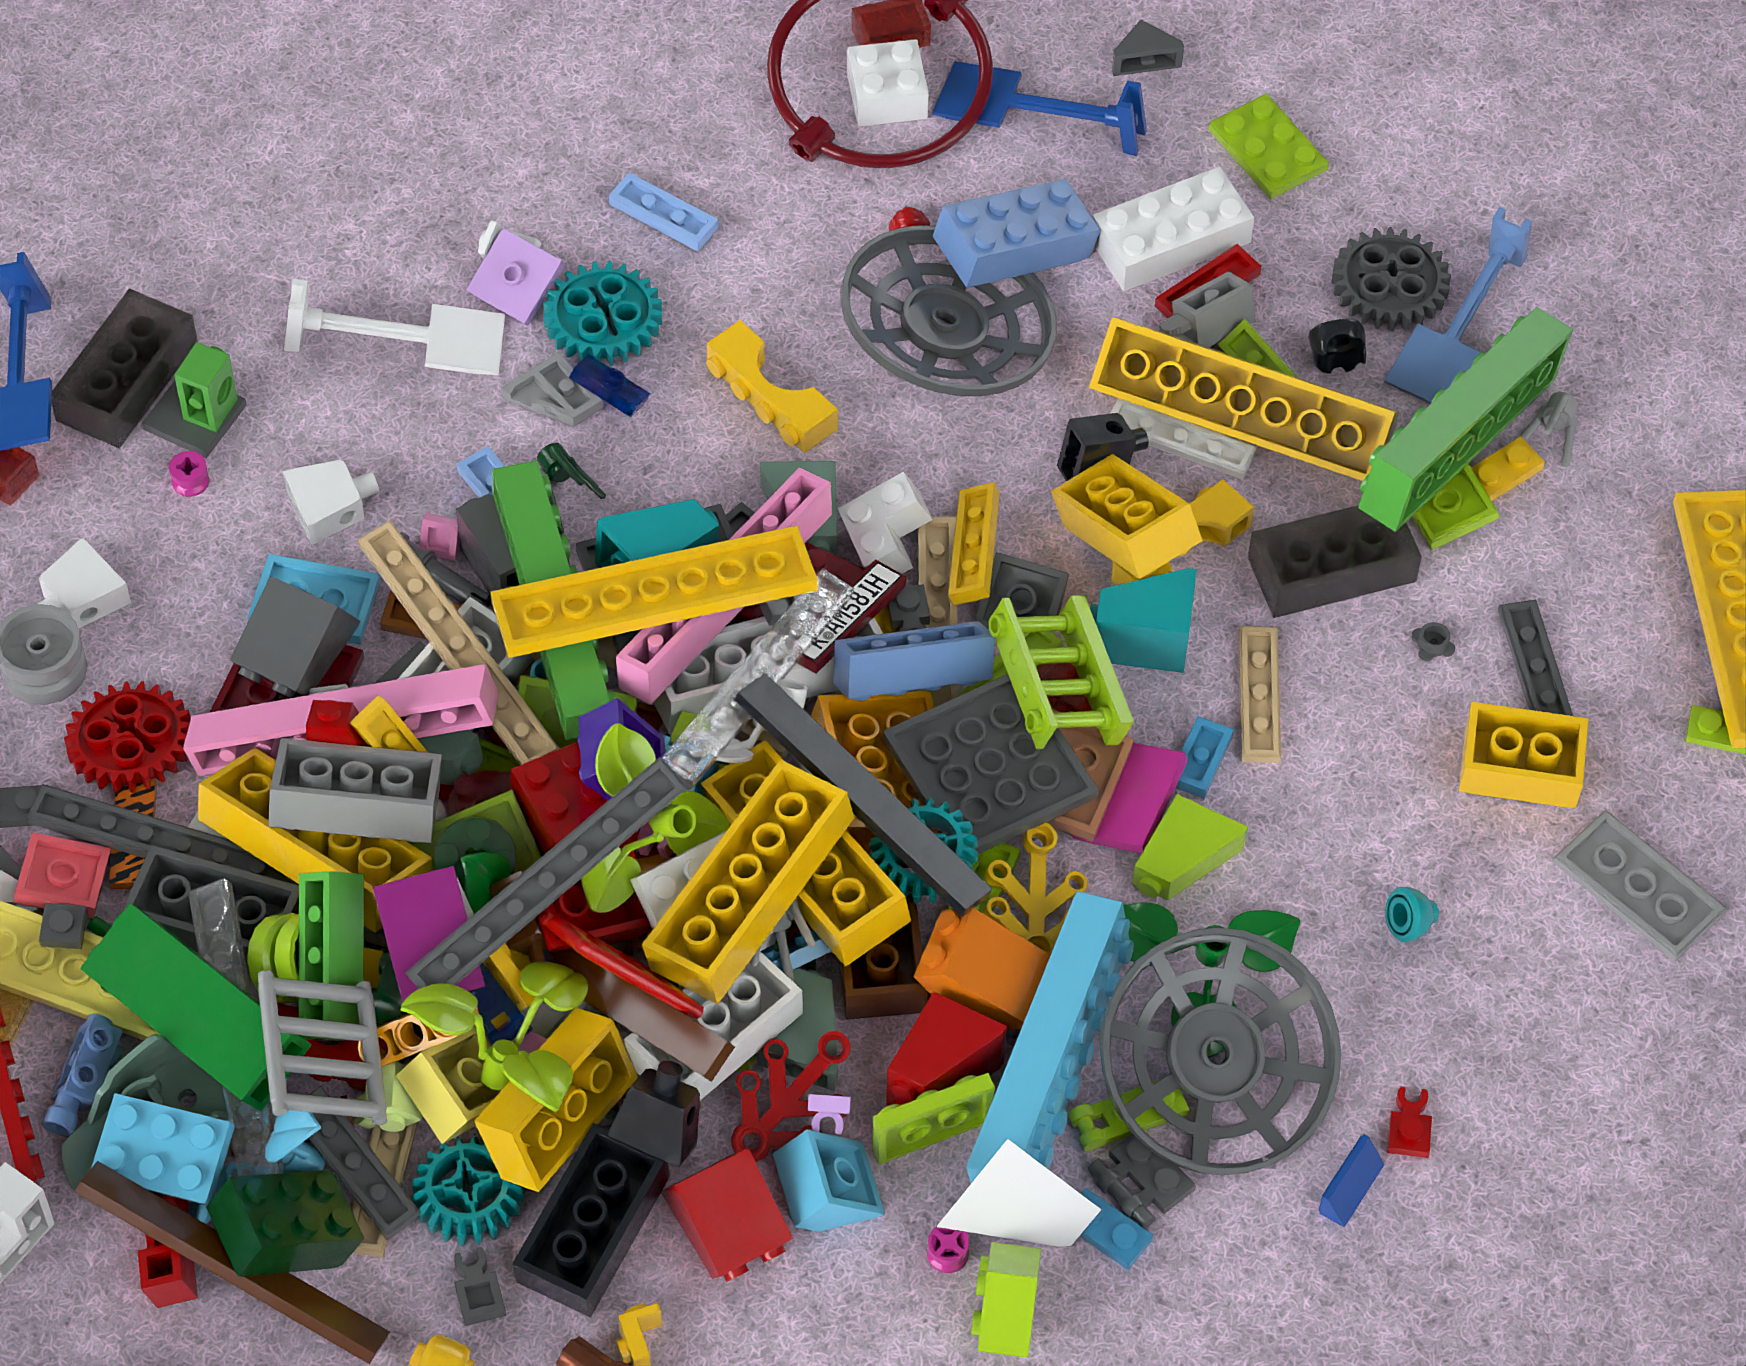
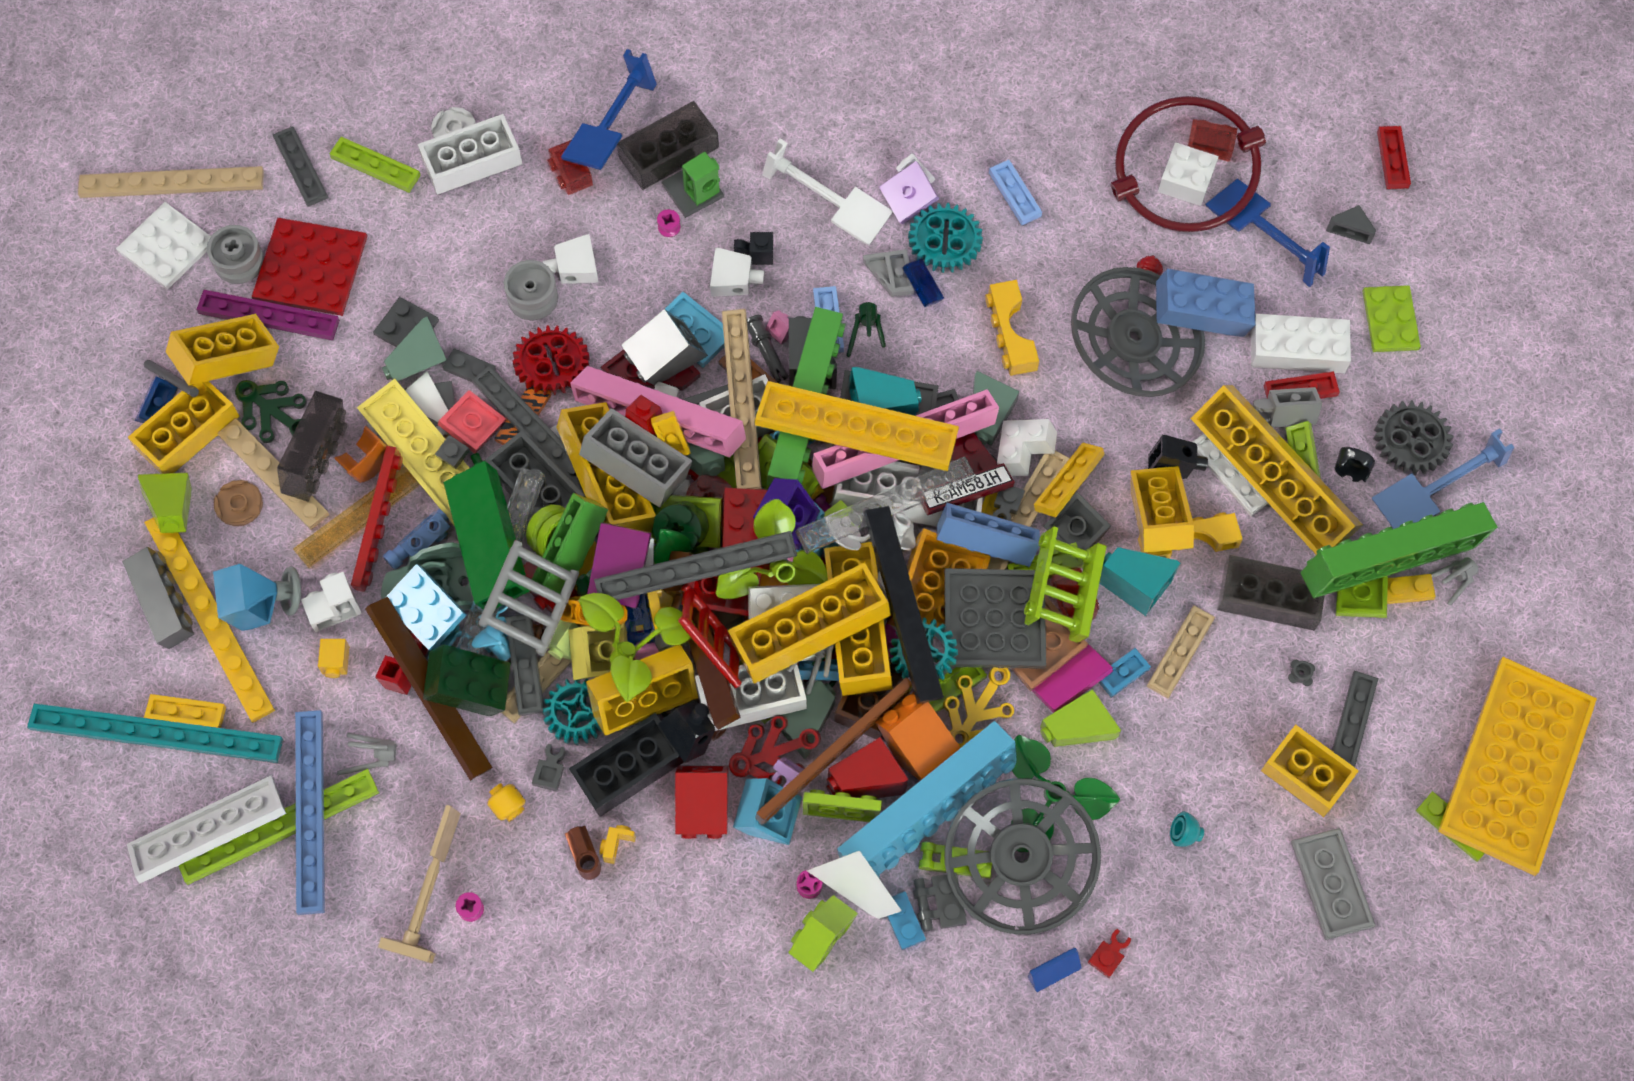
camera: 30 degrees right, 10 degrees up
(53, 1301) = (333, 657): none -> yellow brick
(345, 441) = (759, 247): none -> black brick
(881, 1044) = (833, 752): none -> dark orange tile

